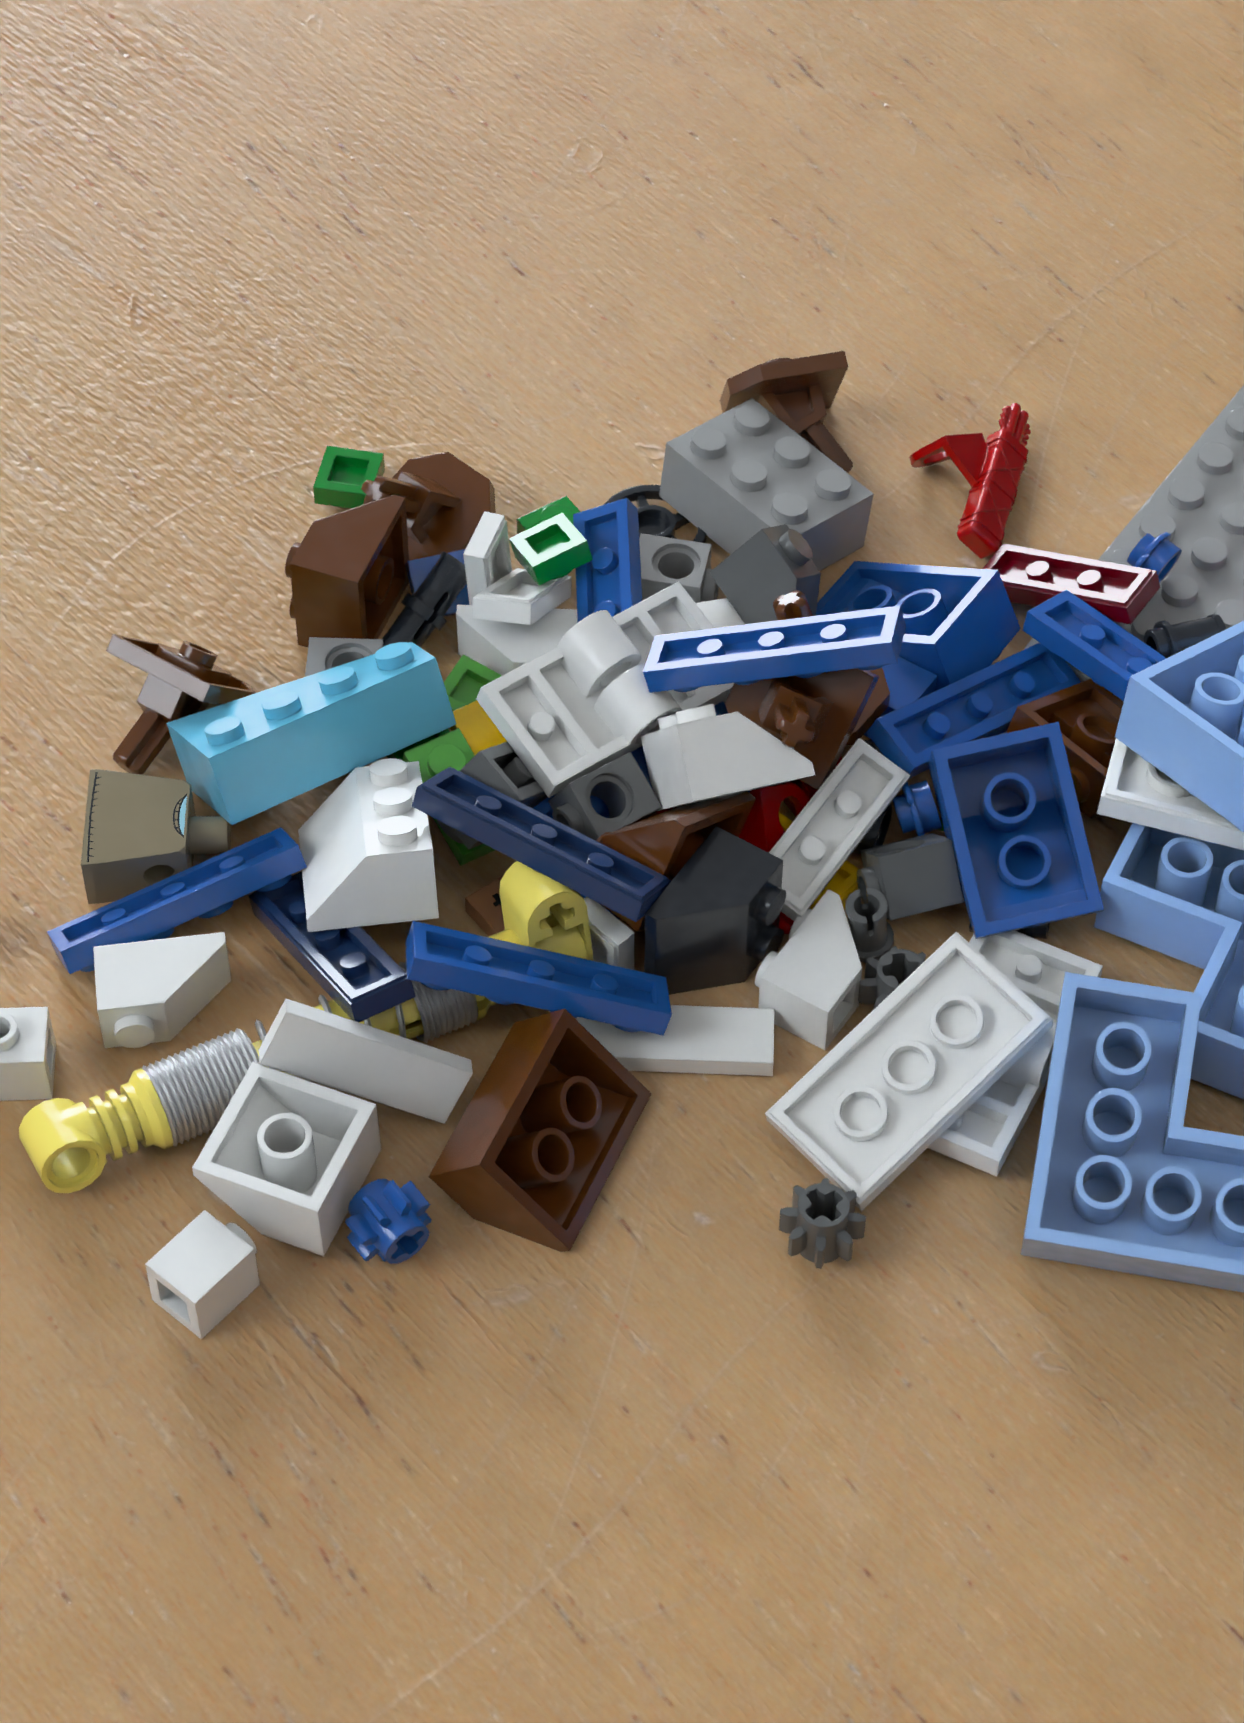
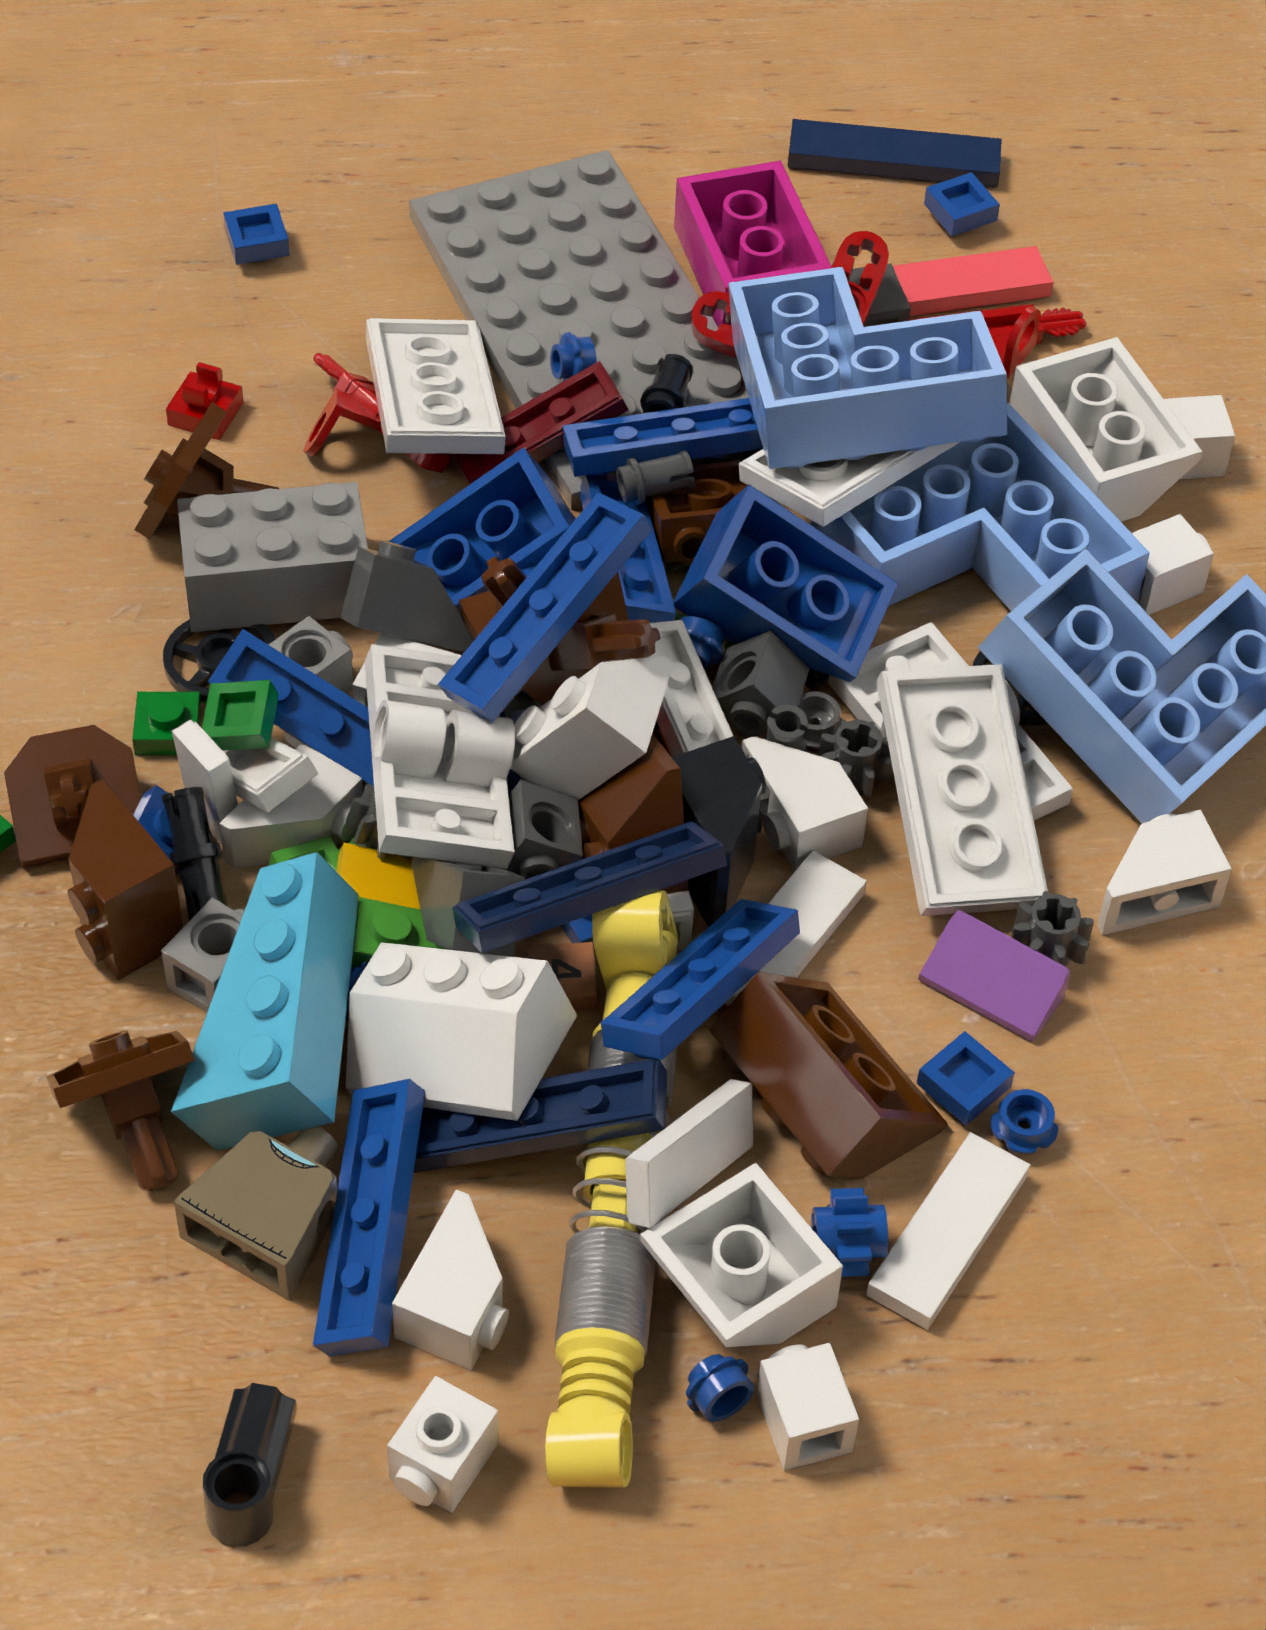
camera: 60 degrees left, 0 degrees up
(182, 1204) = (719, 1387): none -> blue plate
(457, 1299) = (948, 1230): none -> white tile
(602, 1286) = (1029, 1108): none -> blue plate
(616, 1234) = (965, 1078): none -> blue plate
(745, 1209) = (995, 975): none -> medium lavender slope
(904, 372) = (198, 393): none -> red tile
(921, 929) = (822, 715): none -> flat silver plate
(959, 1276) = (1166, 874): none -> white slope
(1042, 490) = (433, 387): none -> white tile
(1057, 674) = (654, 477): none -> dark grey pin
(1118, 296) = (256, 234): none -> blue plate

